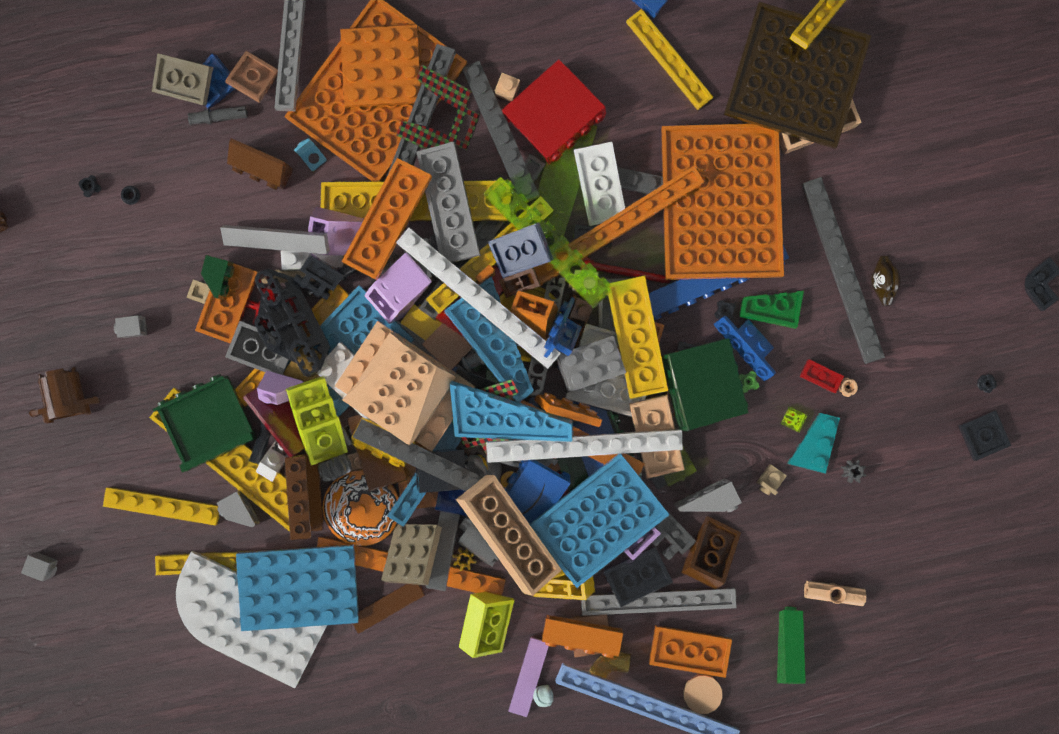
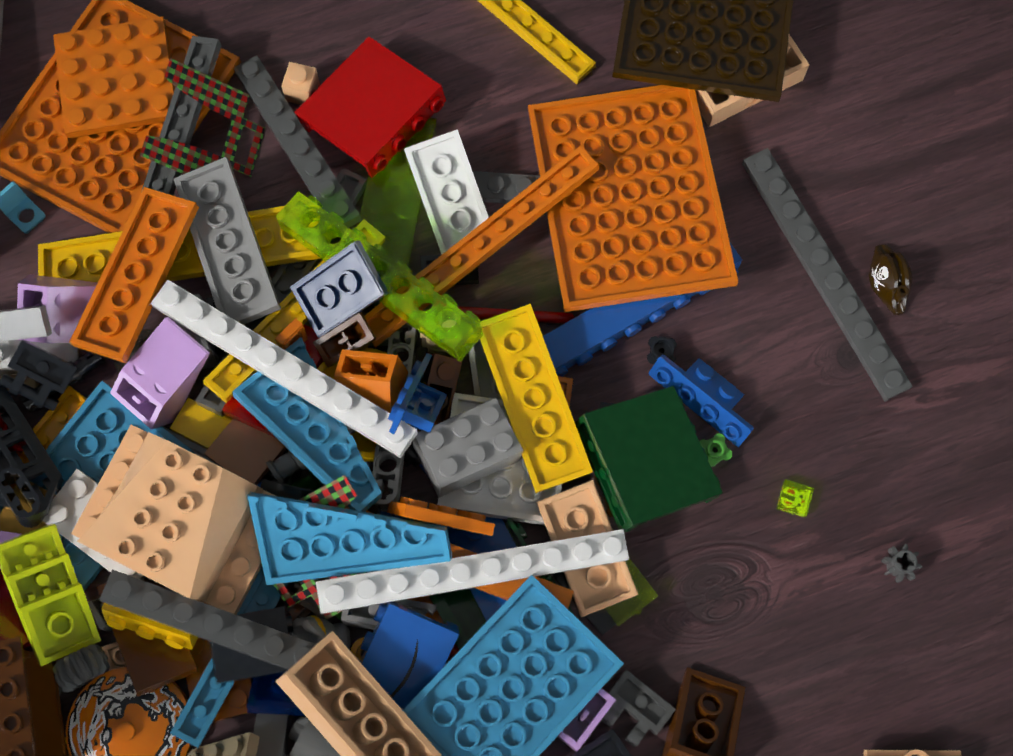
camera: 10 degrees left, 15 degrees down
(714, 498) = (694, 633): light grey slope -> none
(771, 480) = (777, 596): tan bracket -> none
(776, 309) = (738, 338): green wing -> none
(817, 445) = (838, 532): teal wing -> none
(821, 376) = (824, 427): red plate -> none
(852, 384) = (874, 438): light nougat plate -> none

